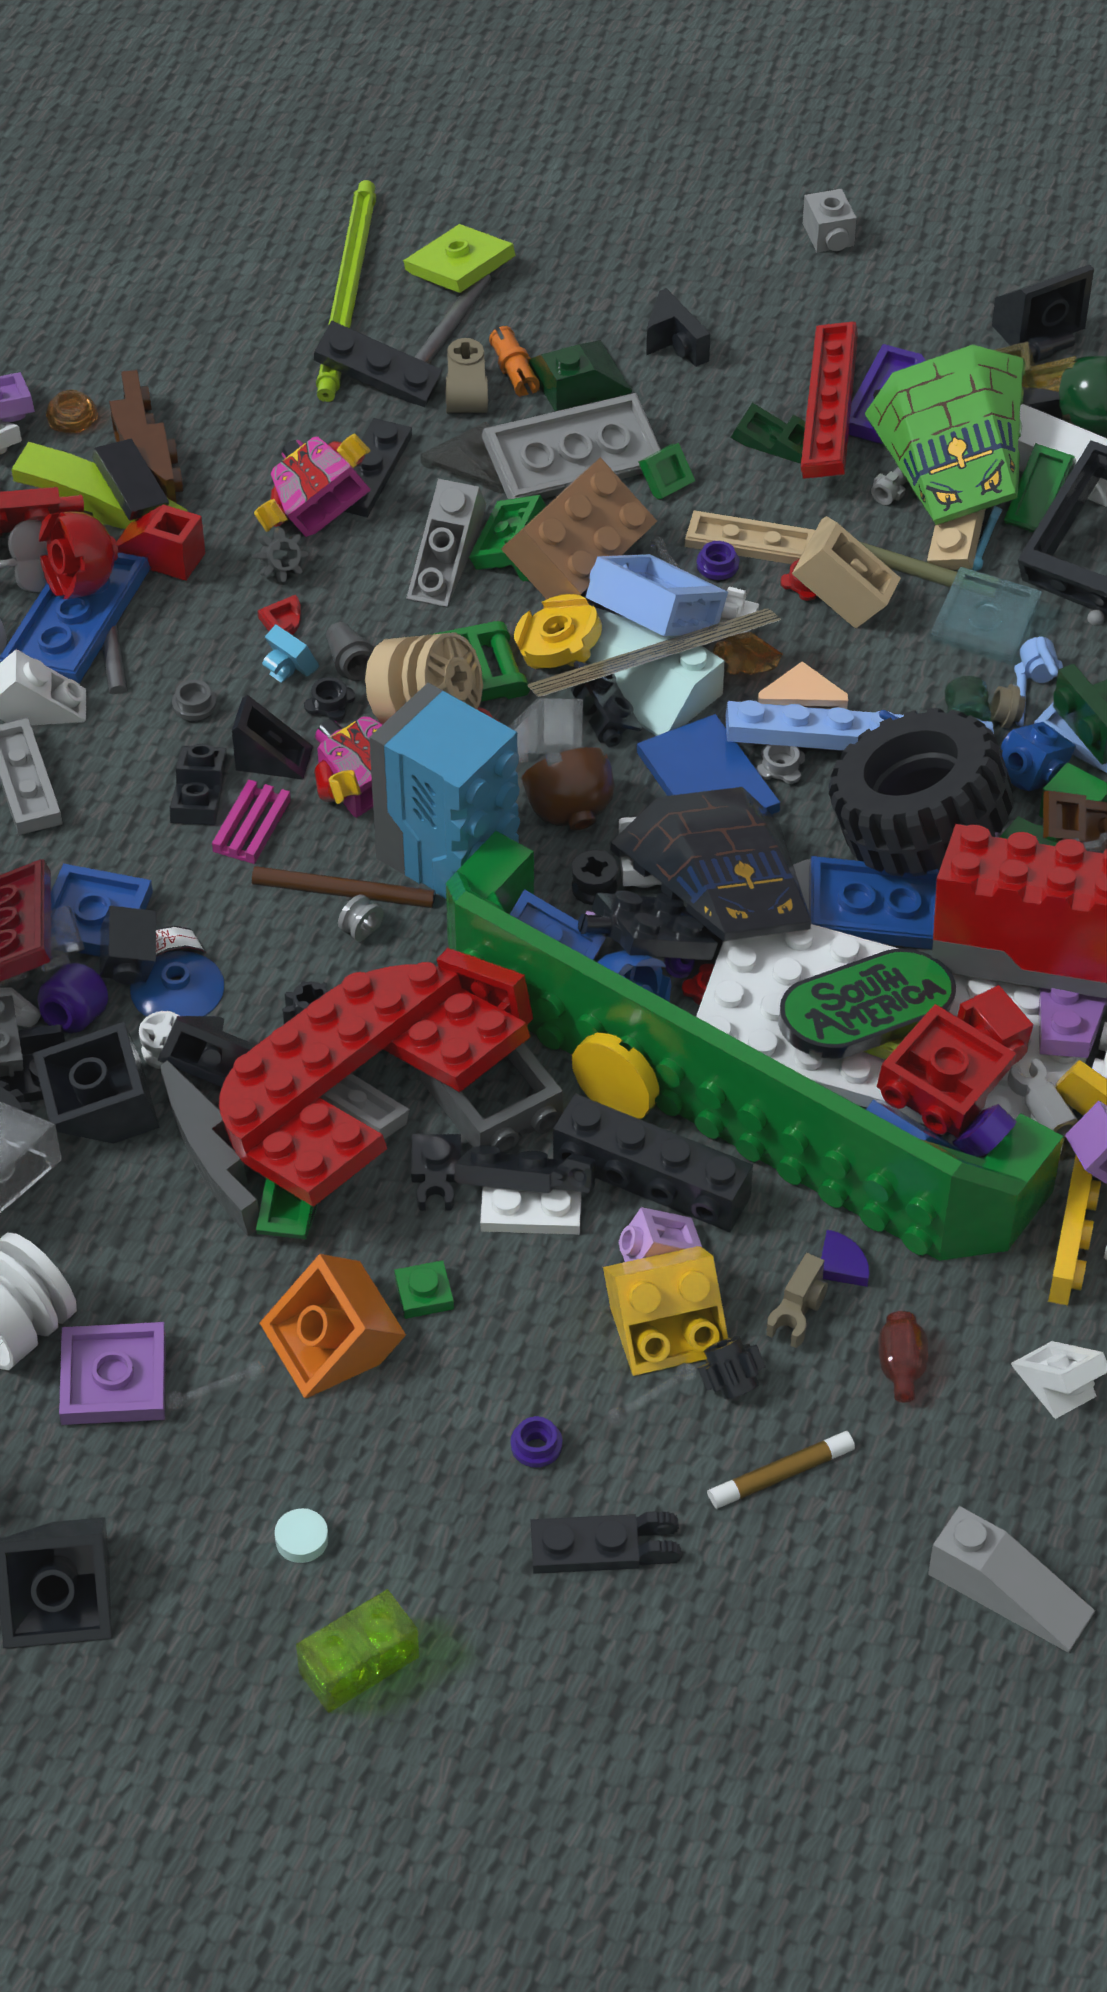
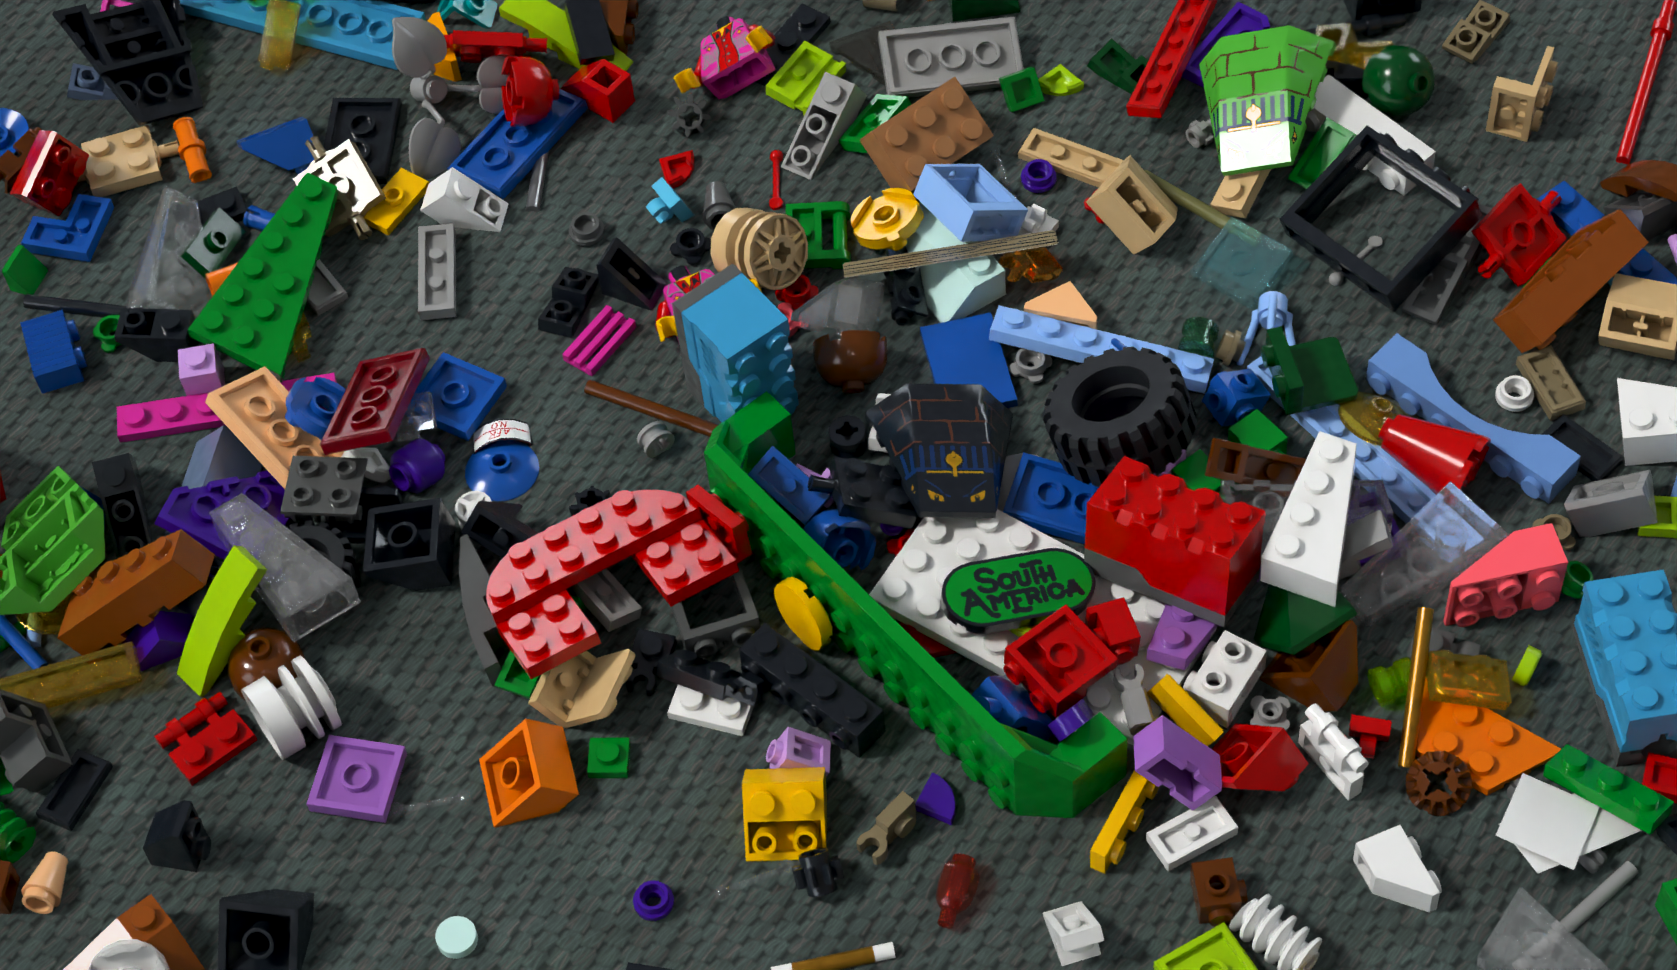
camera: 20 degrees right, 5 degrees up
(128, 944) = (466, 432): black brick -> none
(372, 1212) = (582, 688): none -> tan bracket
(398, 588) = (776, 202): none -> red hinge
(403, 497) = (801, 75): none -> lime plate
(708, 457) = (1060, 81): none -> lime tile
(978, 562) = (1253, 213): medium azure hinge -> none

